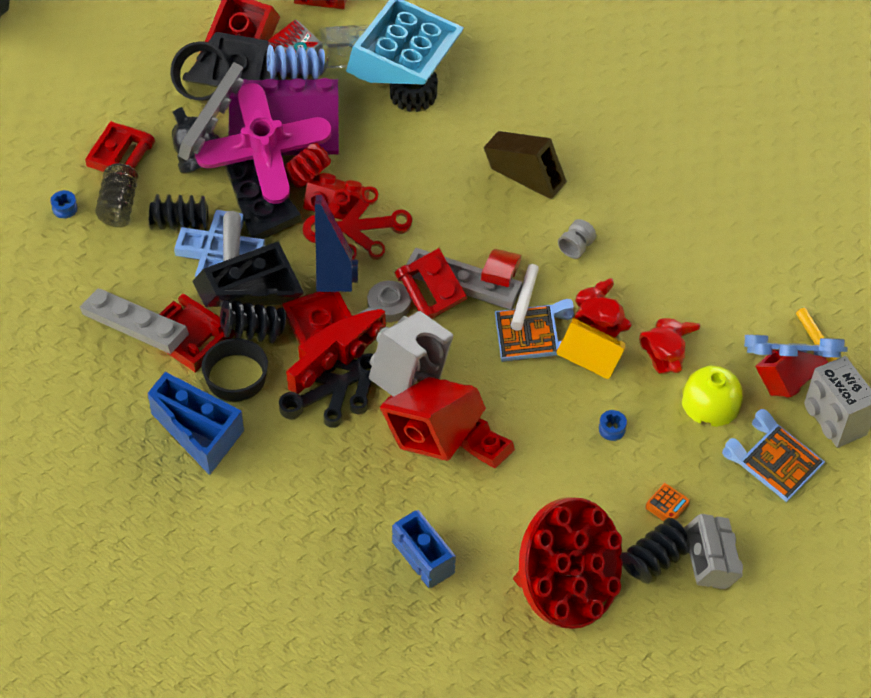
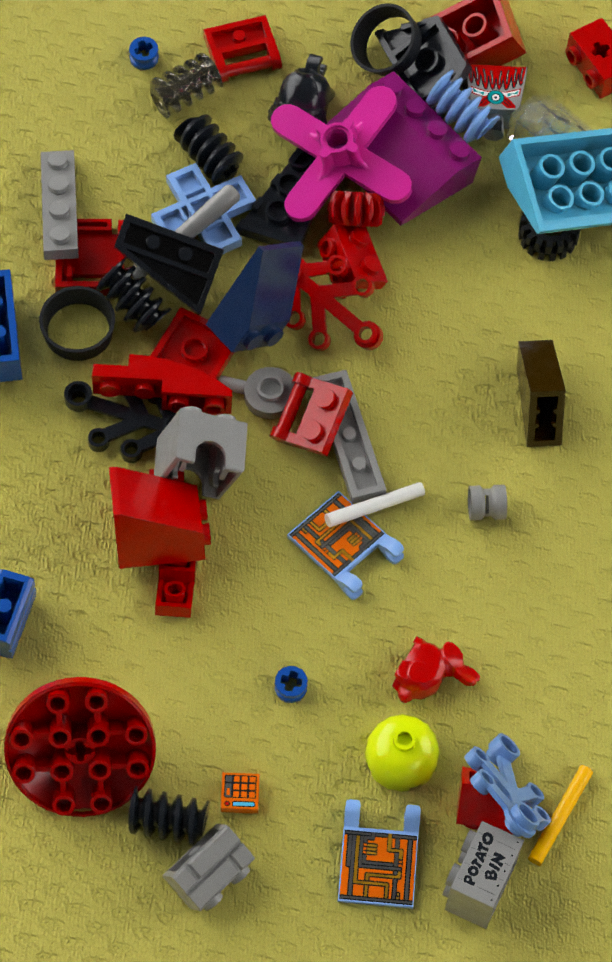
camera: 50 degrees right, 10 degrees up
(207, 118) = (315, 87): light grey plate -> none
(500, 267) = (390, 457): red slope -> none
(591, 348) = (363, 603): yellow panel -> none
(601, 312) = (414, 583): red animal -> none

